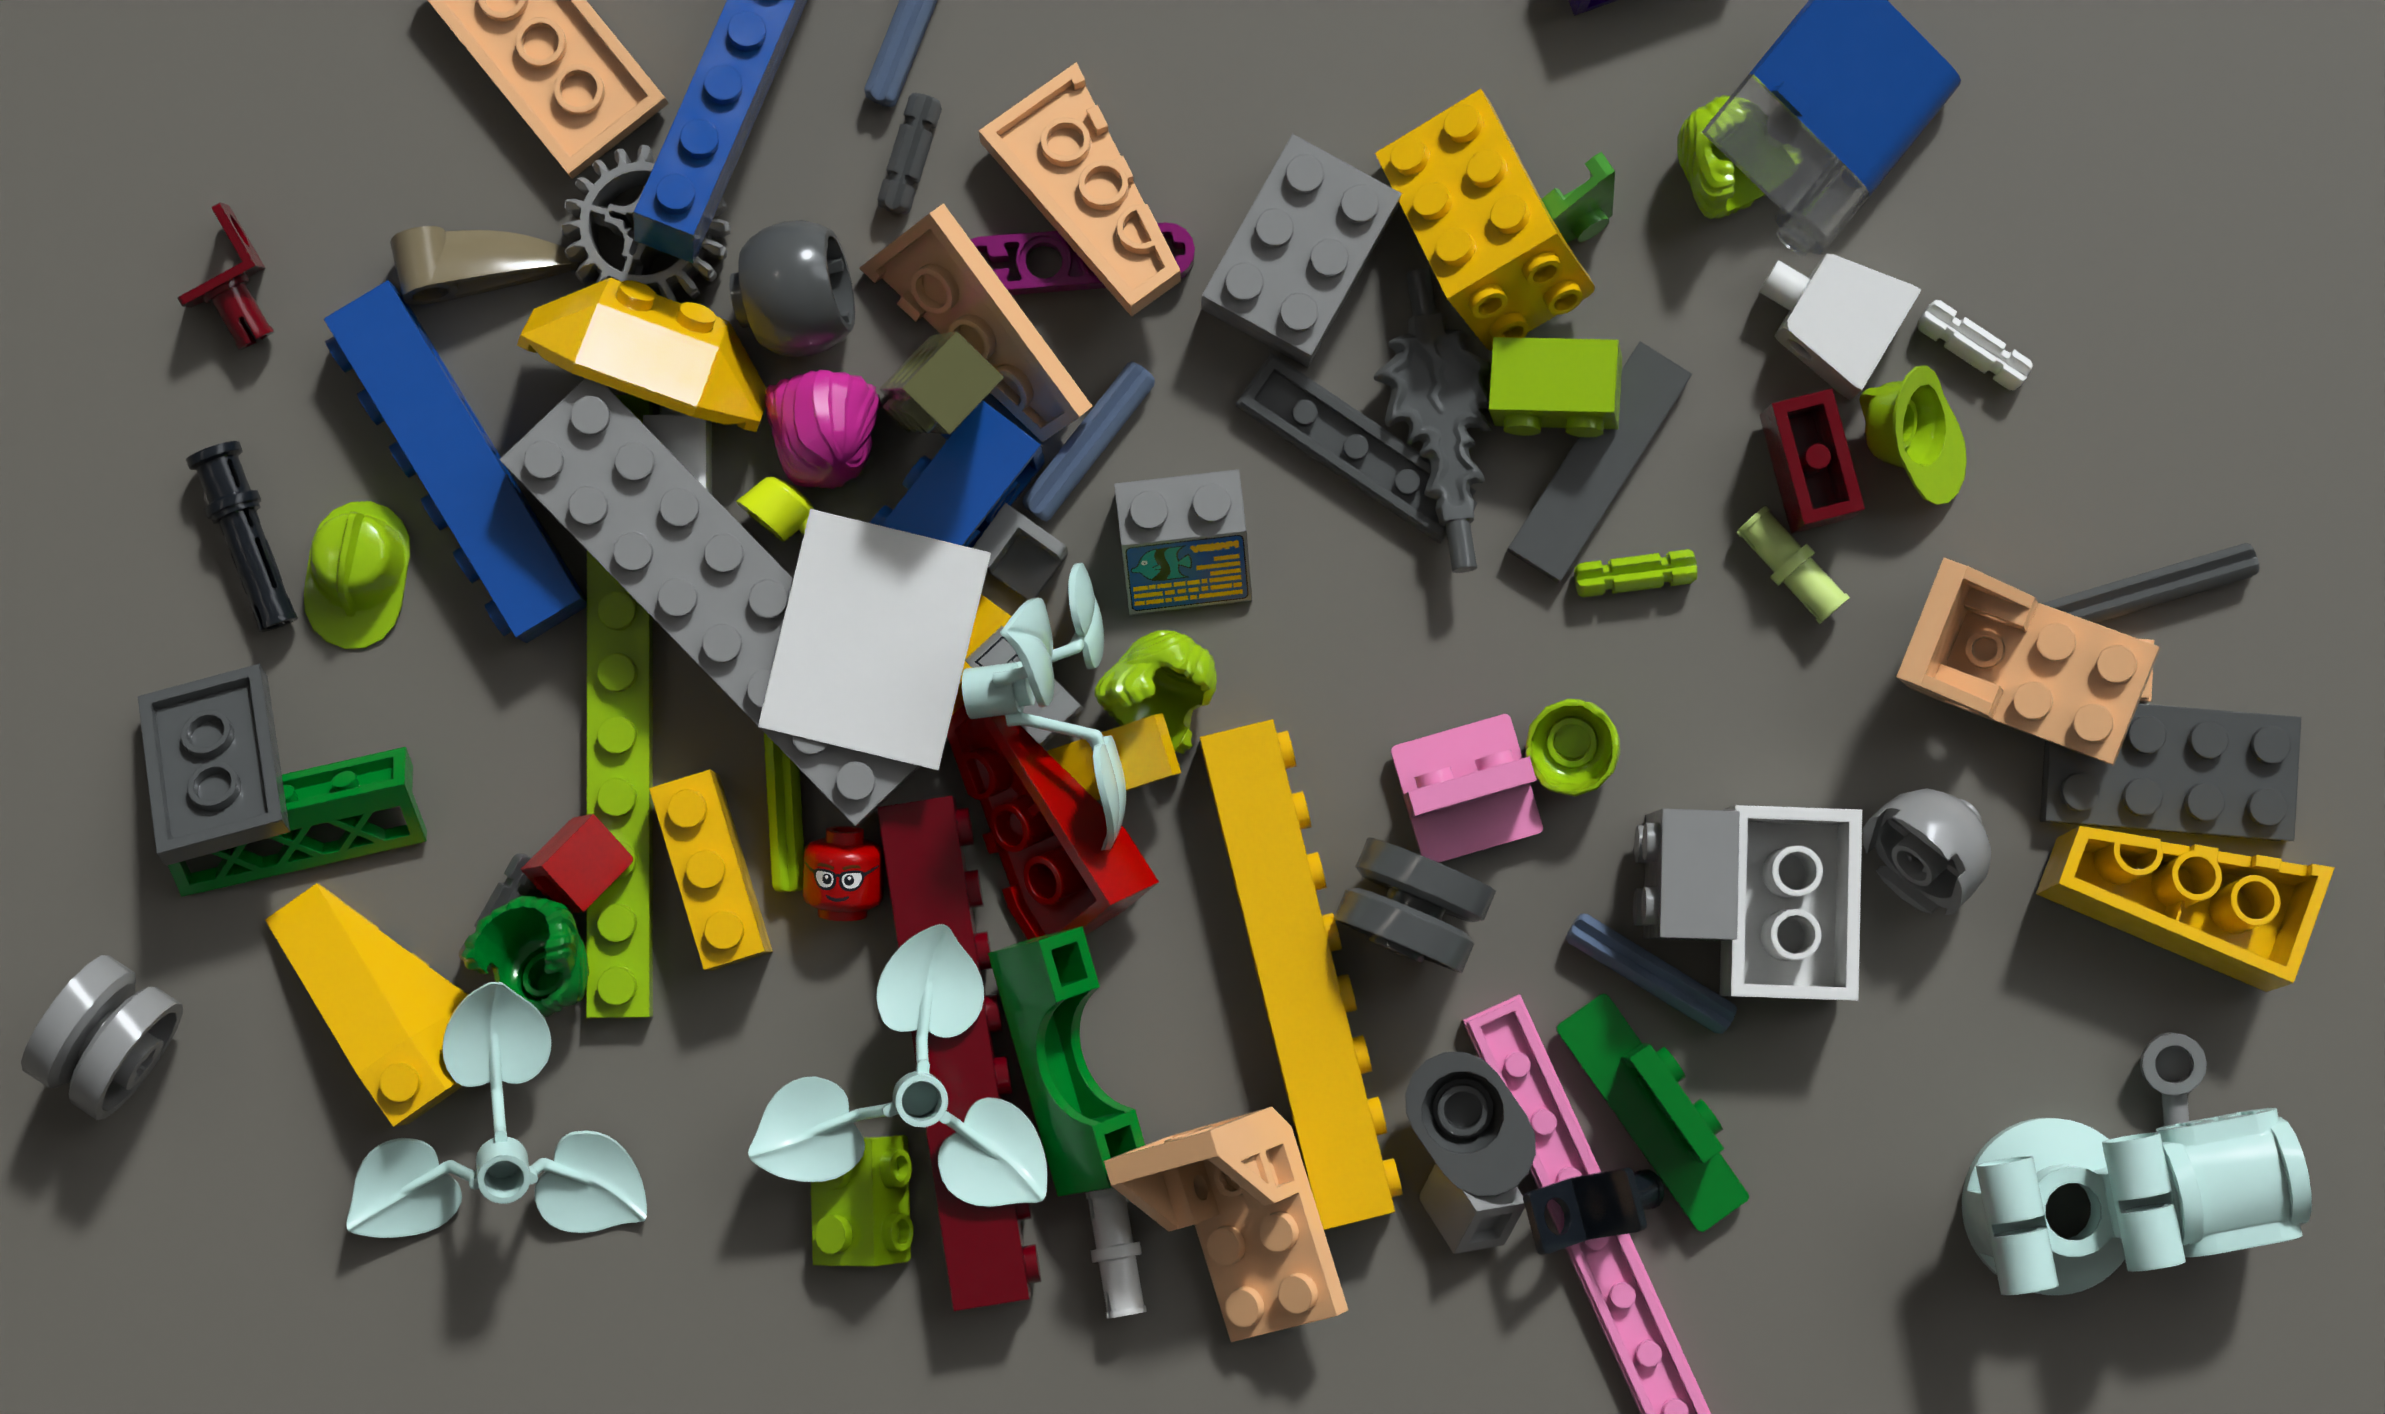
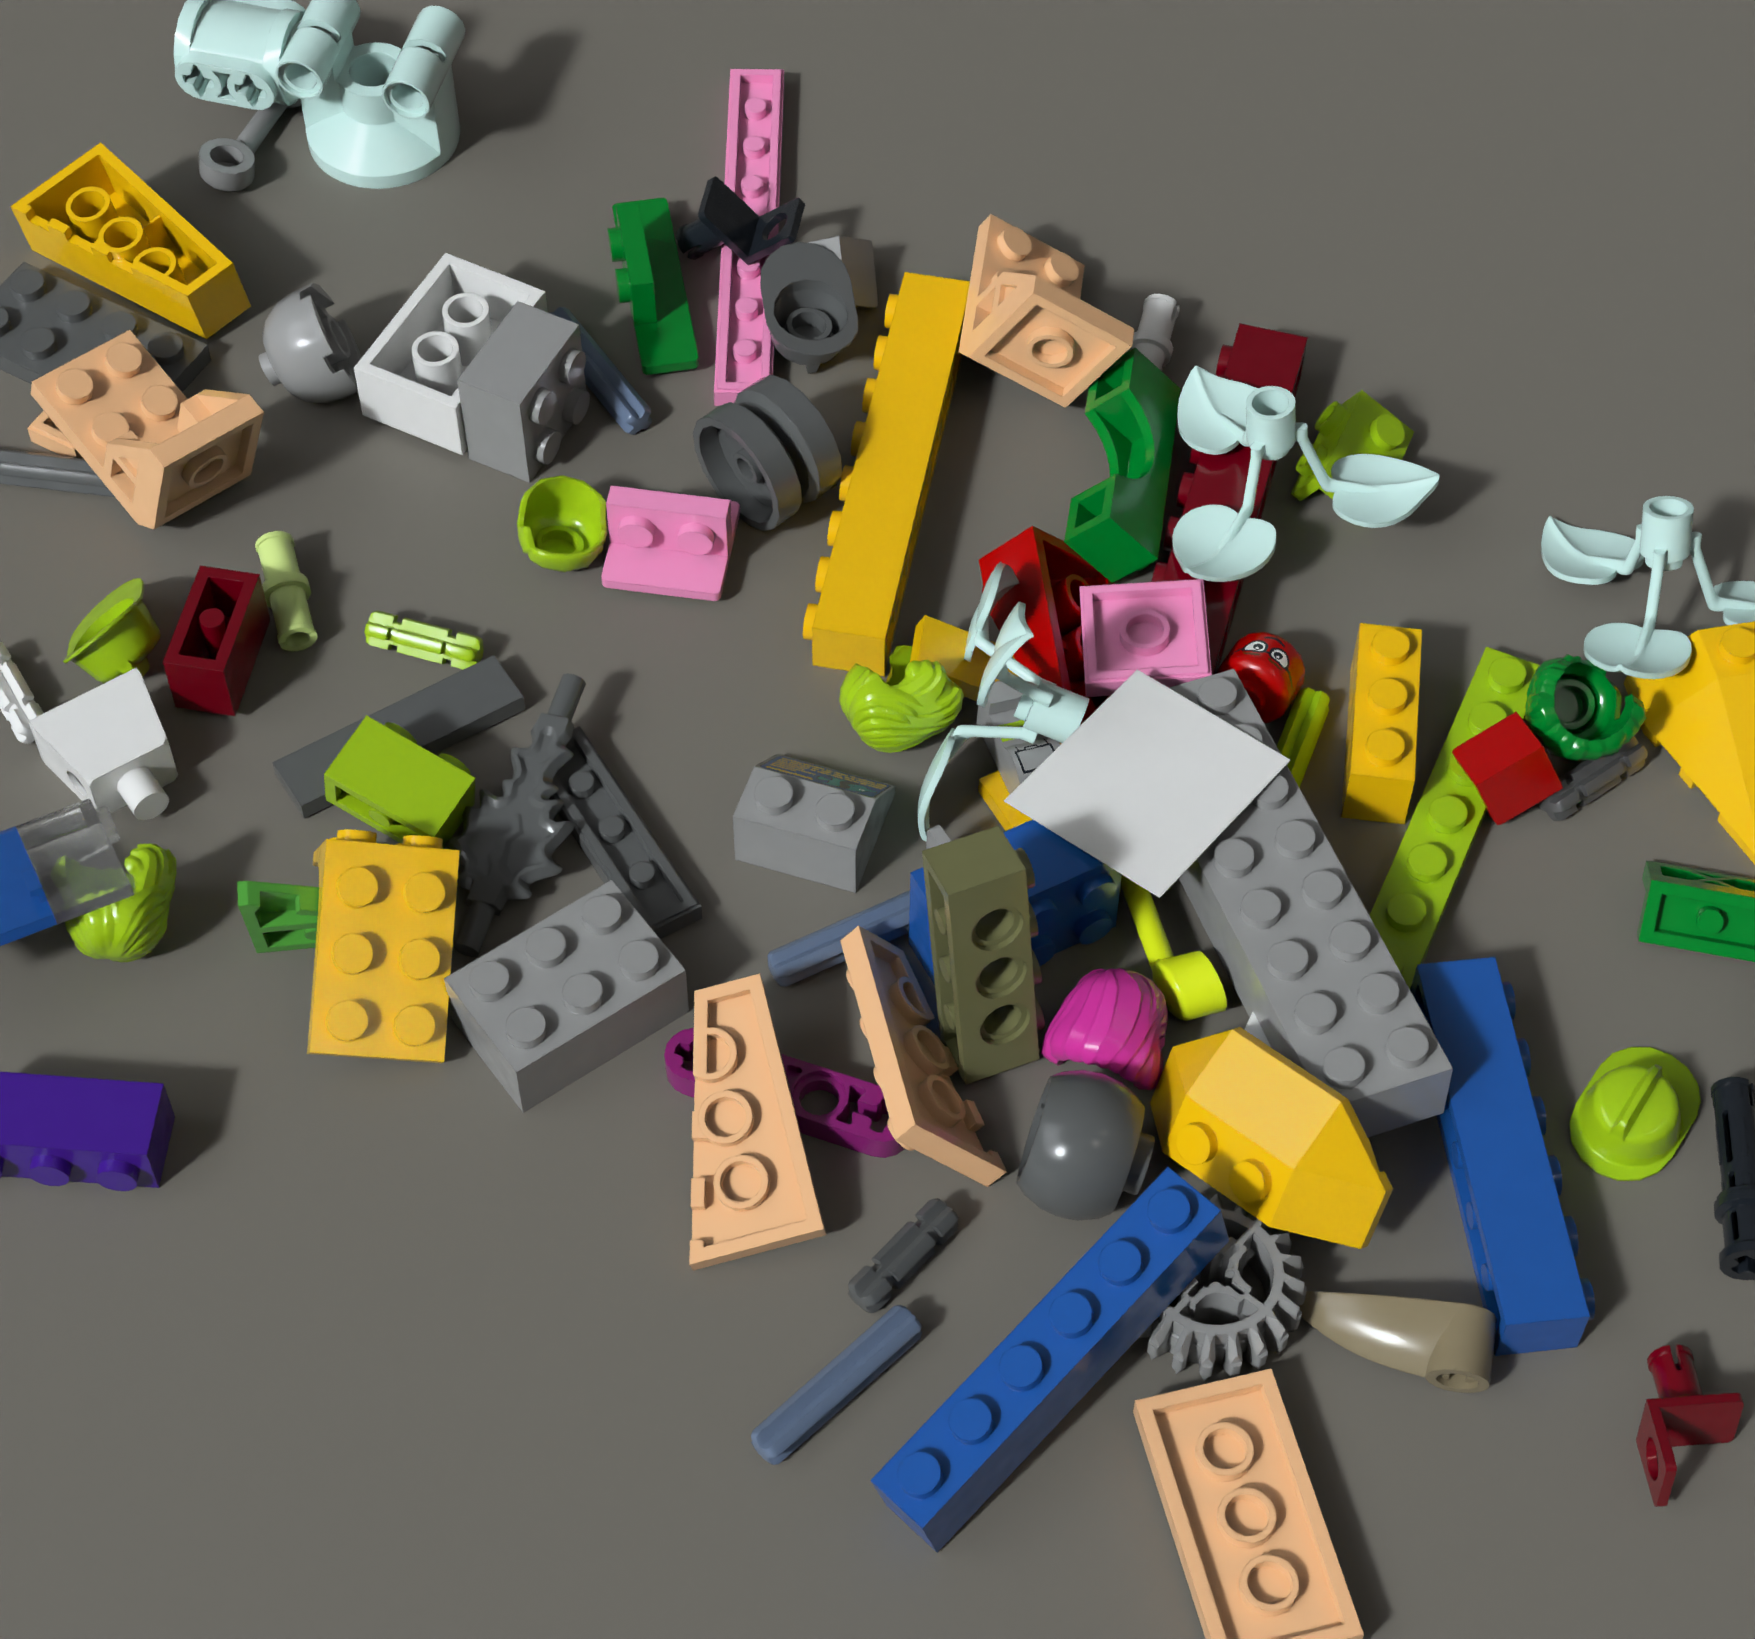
camera: 150 degrees left, 30 degrees down
(957, 841) = (1144, 628): none -> bright pink tile

